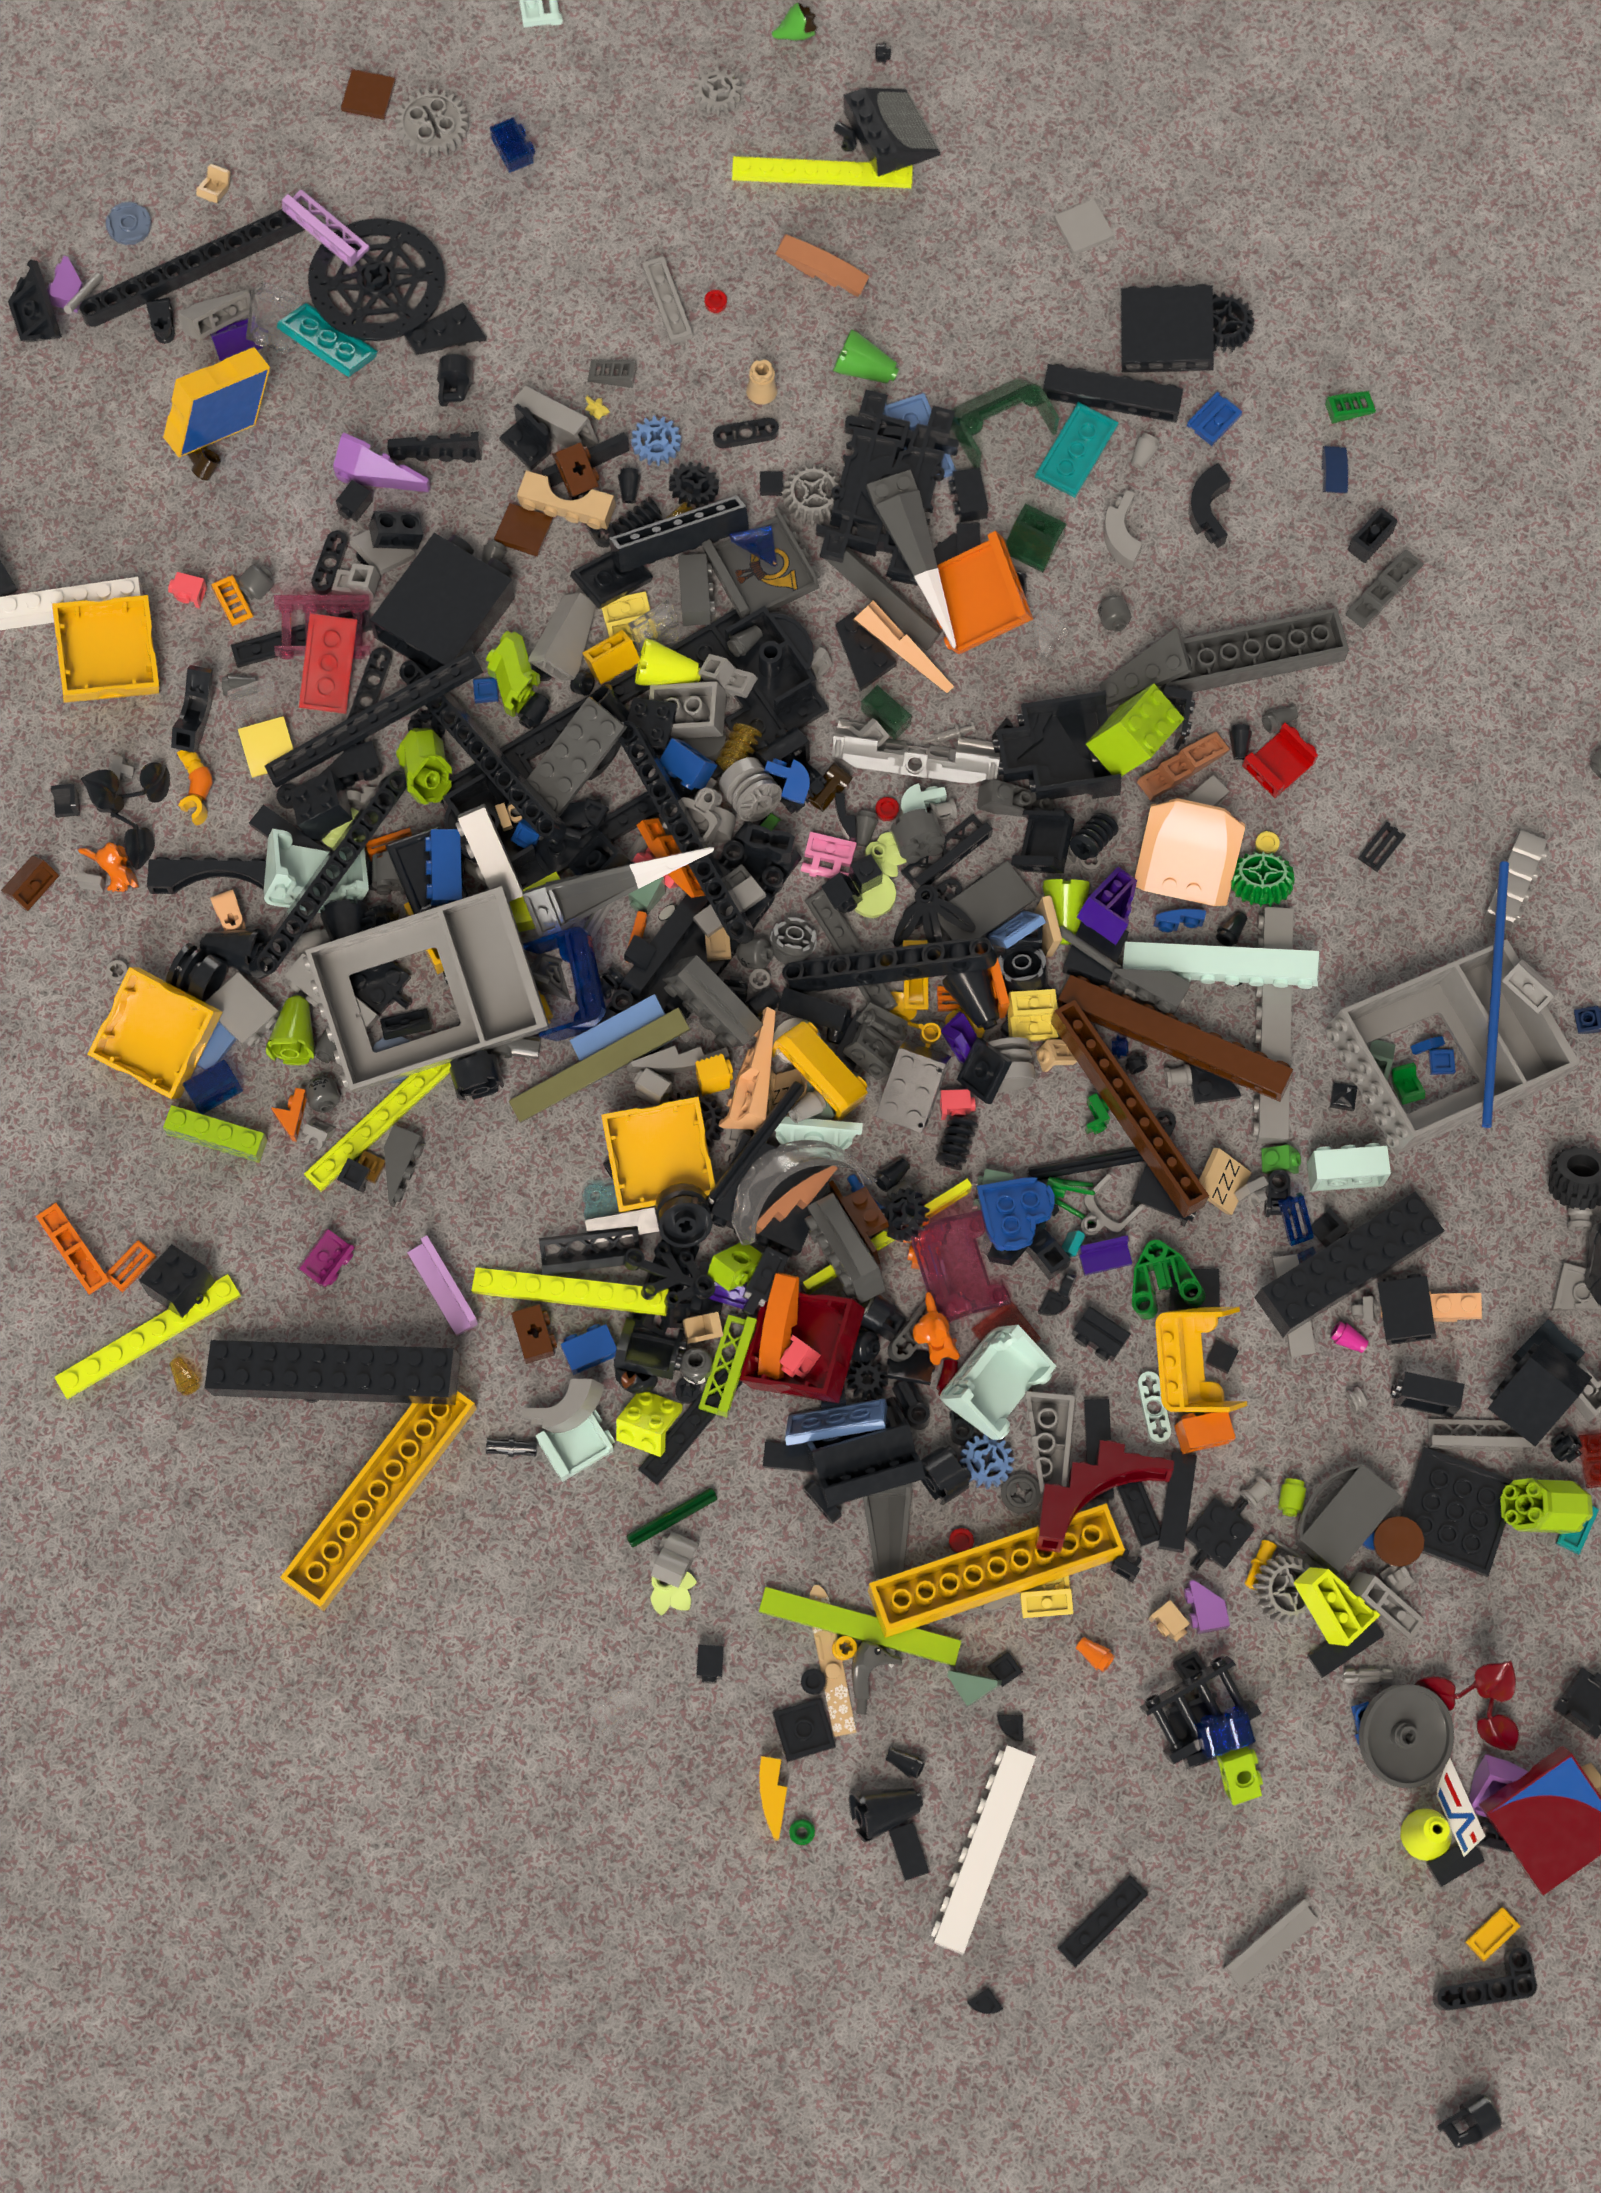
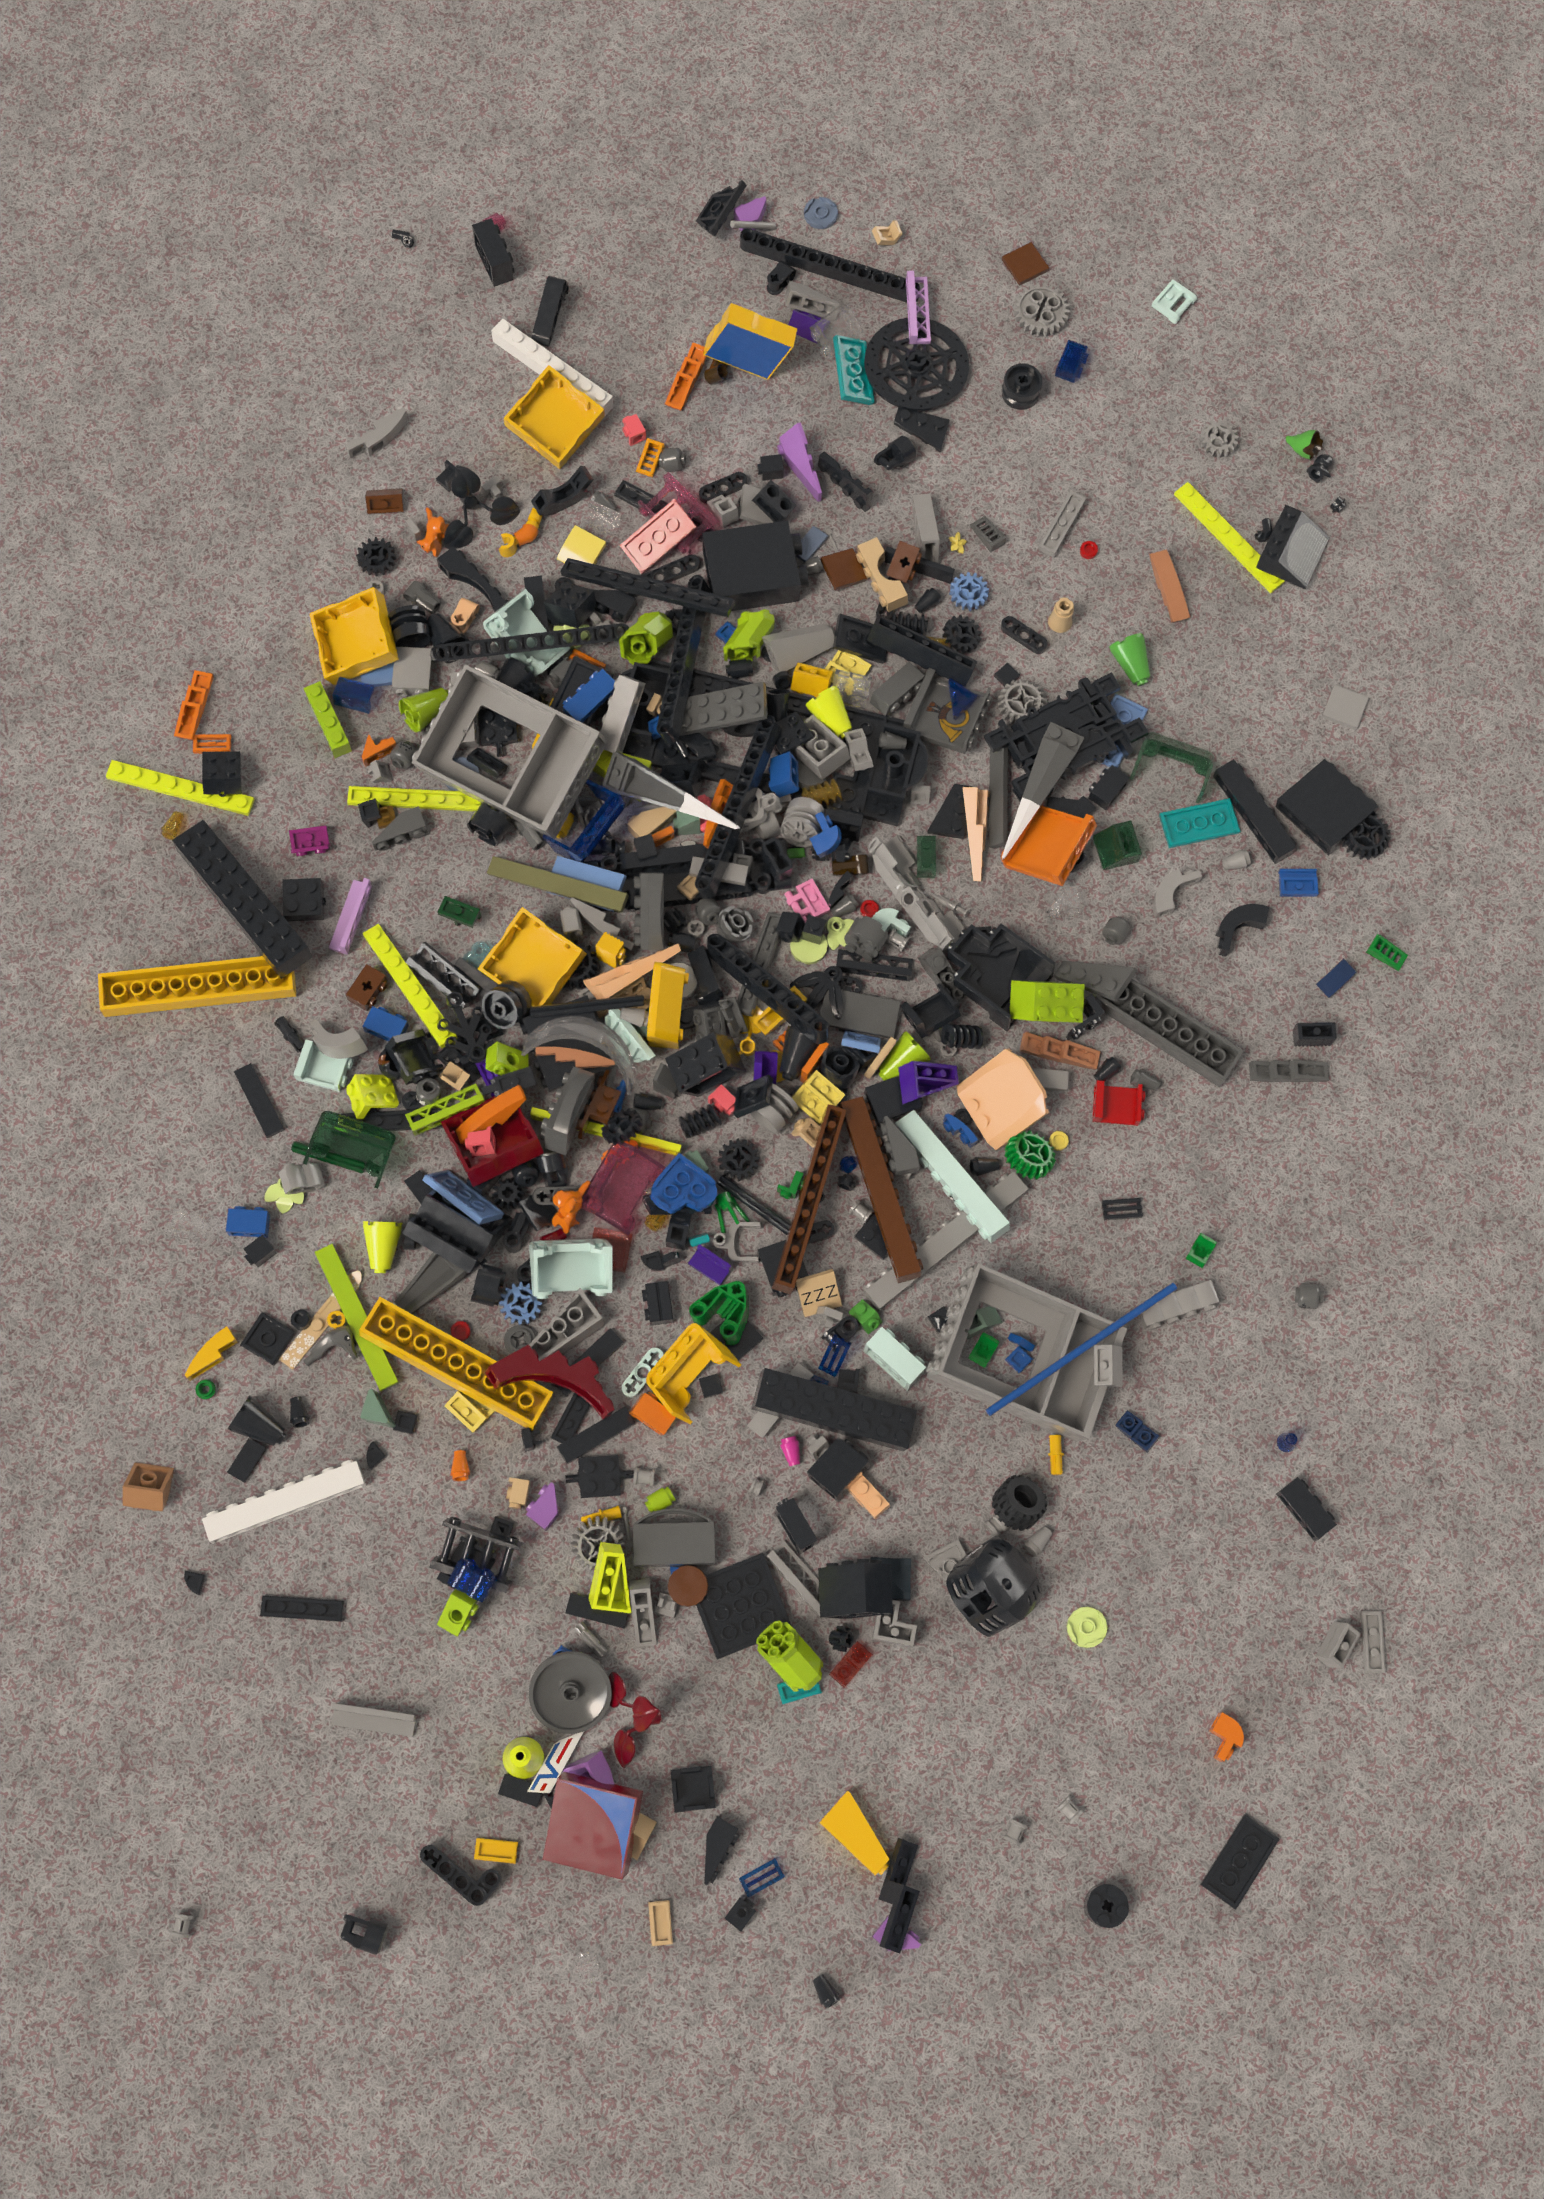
camera: 45 degrees right, 0 degrees up
(75, 936) = (375, 558): none -> black gear
(167, 936) = (419, 595): none -> dark grey piece
(180, 493) = (686, 377): none -> orange slope
(384, 1316) = (303, 899): none -> black brick
(466, 528) = (811, 543): none -> sand blue tile
(495, 209) = (1021, 386): none -> black wheel
(527, 438) = (899, 523): black bracket -> none
(539, 1180) = (459, 912): none -> dark green panel
(551, 1534) = (259, 1100): none -> black tile
(613, 930) = (650, 821): none -> tan slope
(670, 1648) = (248, 1222): none -> blue brick
(682, 1476) = (352, 1140): none -> clear green windscreen
(809, 1539) = (381, 1243): none -> neon yellow cone
(830, 29) = (1320, 467): none -> black animal
(852, 1968) = (147, 1487): none -> medium nougat slope
(871, 730) = (903, 857): light grey panel -> none
(891, 1138) = (664, 1082): none -> dark grey slope
(1018, 1270) = (655, 1222): none -> clear yellow cone
(1033, 1147) = (746, 1159): none -> black gear
(1088, 949) = (887, 1092): dark grey bar -> none
(1167, 900) = (963, 1112): none -> black plate
(1483, 813) = (1201, 1250): none -> green bracket
(1559, 1108) = (1055, 1454): none -> yellow axle

